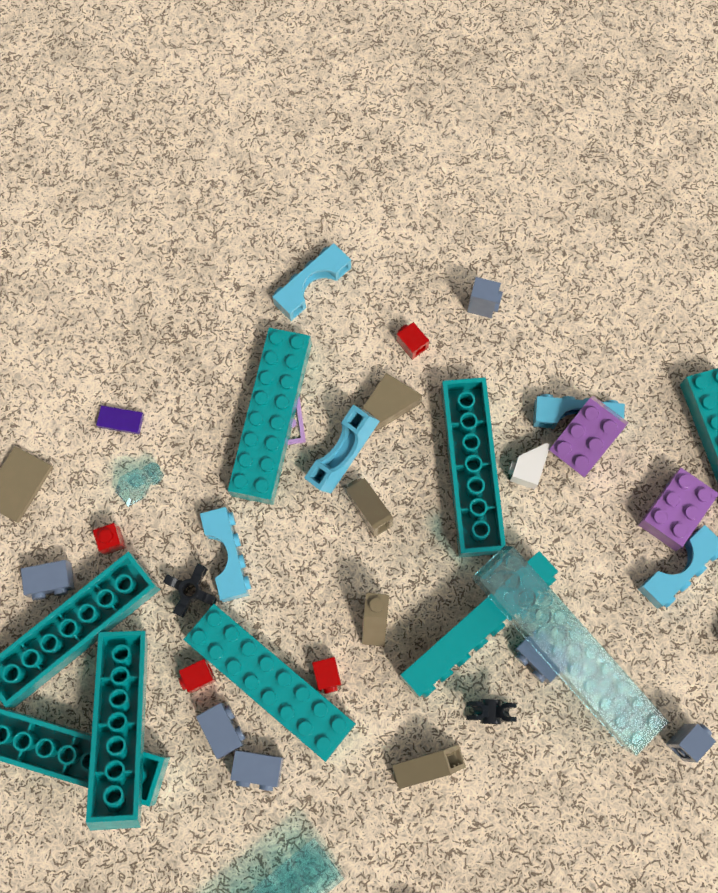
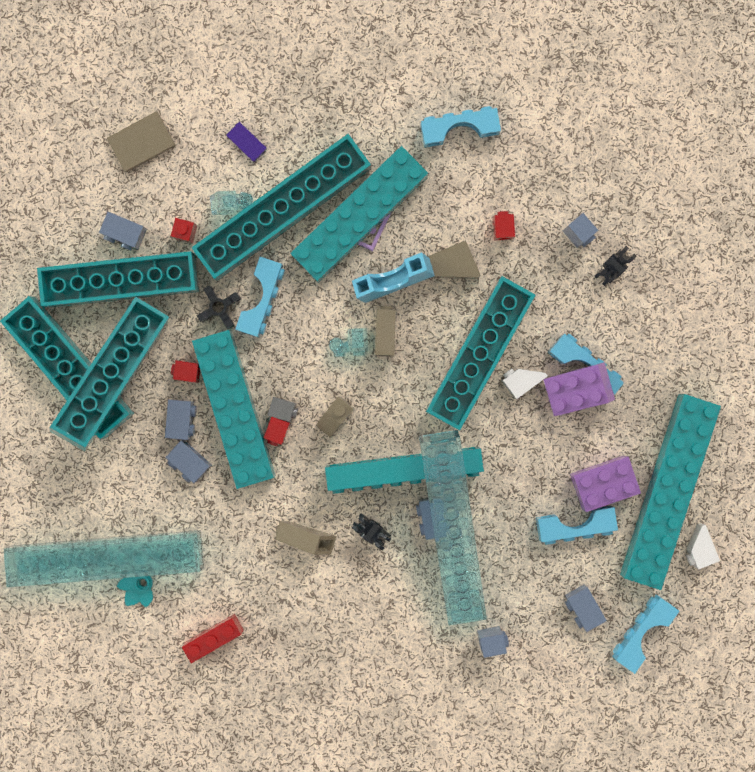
camera: 25 degrees right, 15 degrees up
(191, 457) = (282, 207): none -> teal brick
(319, 648) = (283, 409): none -> flat silver brick
(348, 536) = (356, 343): none -> clear light blue brick
(538, 307) = (615, 266): none -> black pin

